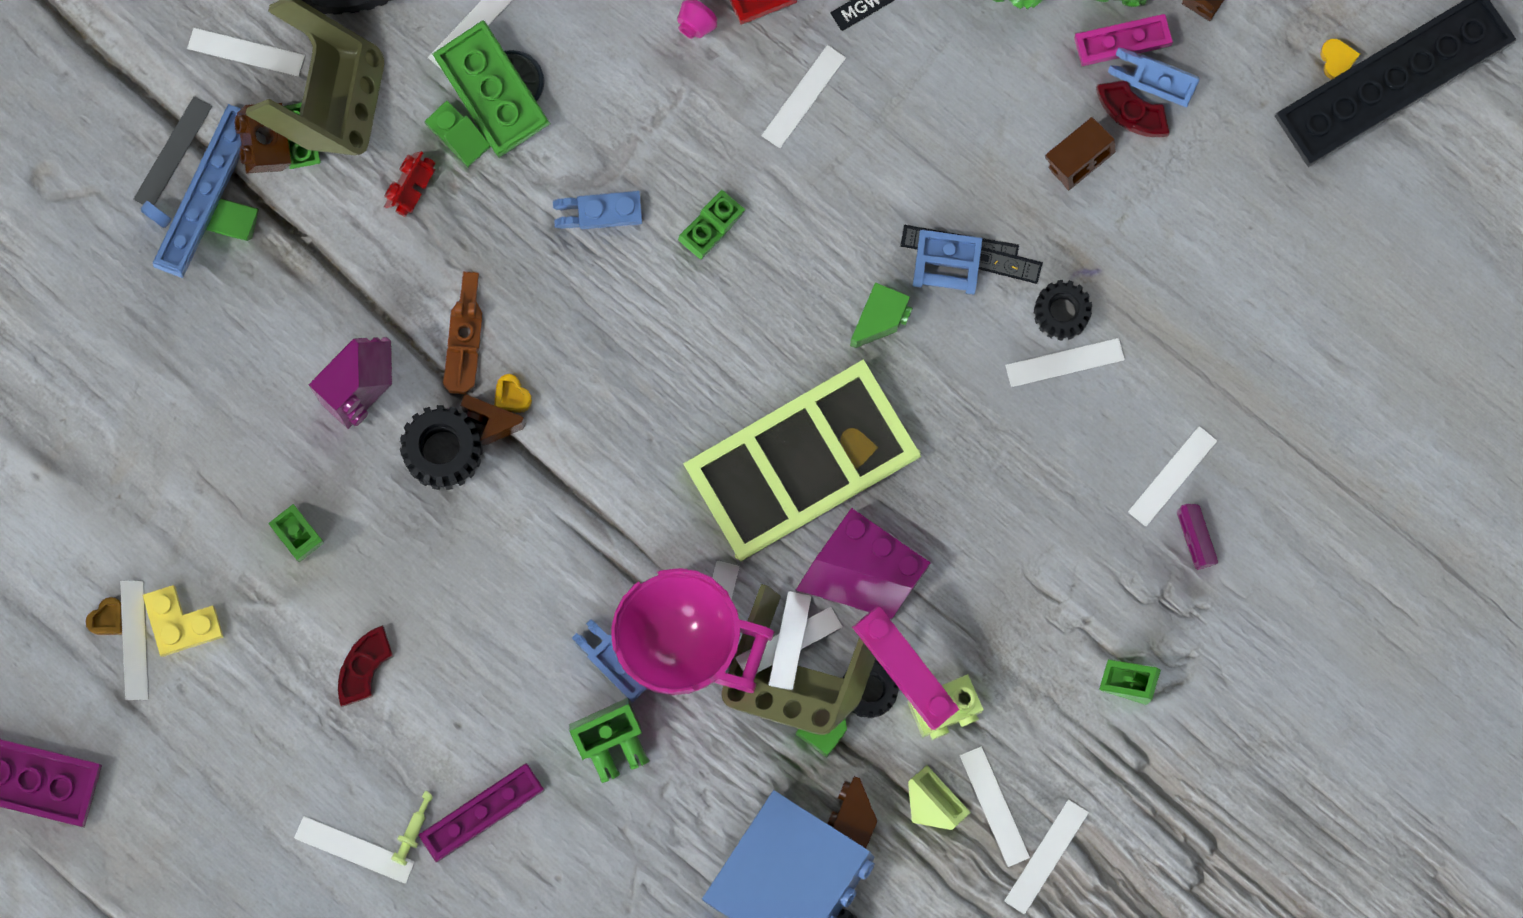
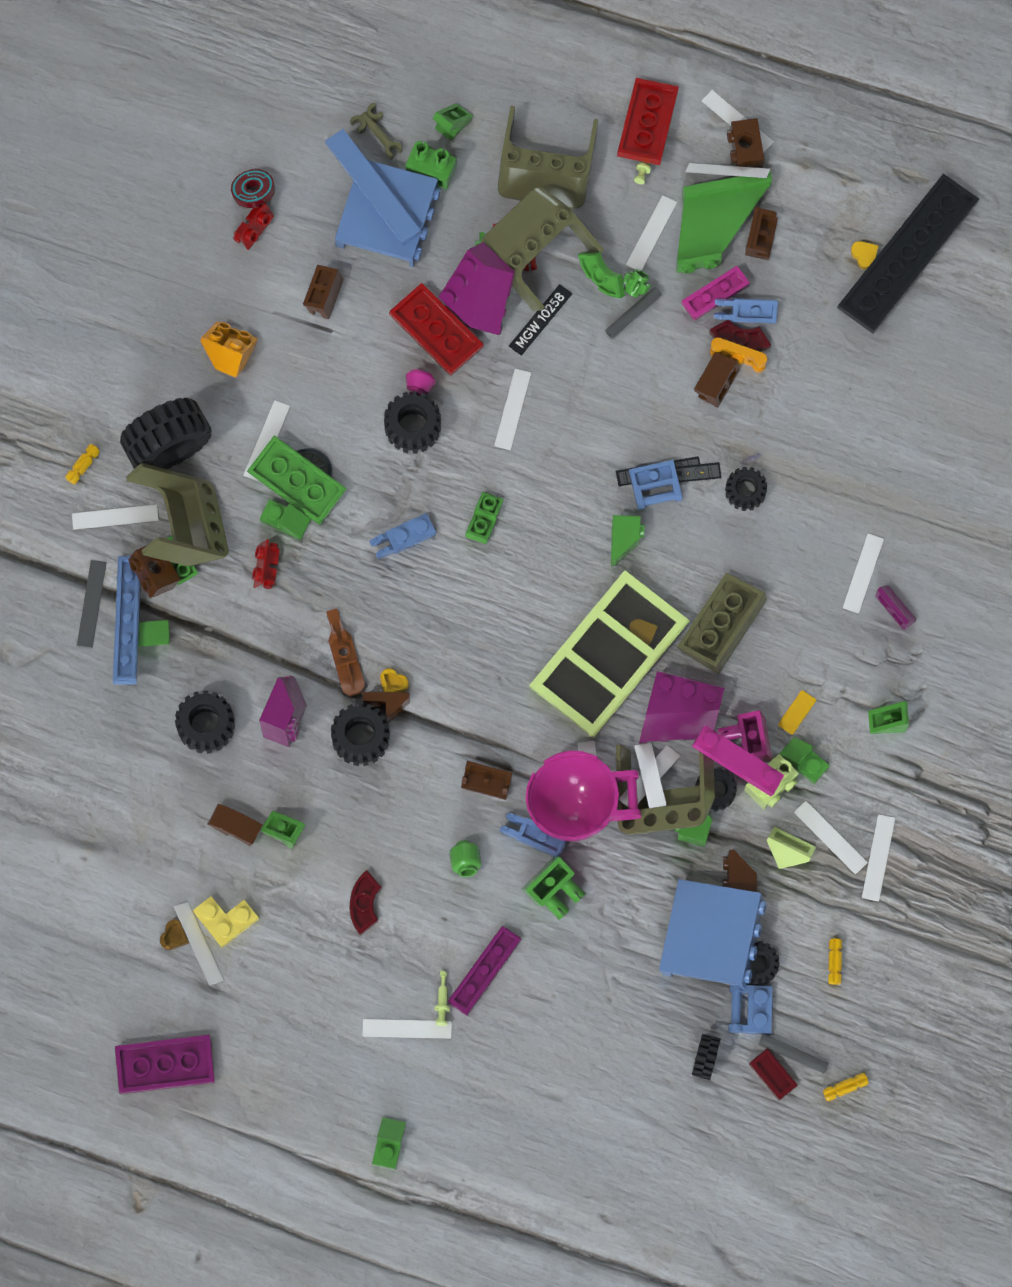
camera: 20 degrees left, 5 degrees down
(155, 214) = (98, 649): medium blue tile -> none
(233, 340) = (205, 703): none -> black tyre
(238, 504) = (234, 824): none -> reddish brown slope
(512, 658) = (465, 858): none -> bright green head
(579, 567) = (486, 780): none -> reddish brown hinge
(666, 43) = (412, 405): none -> black tyre
(944, 640) = (753, 733): none -> dark pink brick
(964, 474) = (722, 622): none -> olive slope
(999, 692) = (804, 759): none -> bright green slope
(1007, 26) = (633, 312): none -> dark grey piece
(1015, 626) = (797, 712): none -> yellow sticker
(1064, 362) = (760, 524): white sticker -> none
(1122, 130) = (739, 353): none -> light orange plate

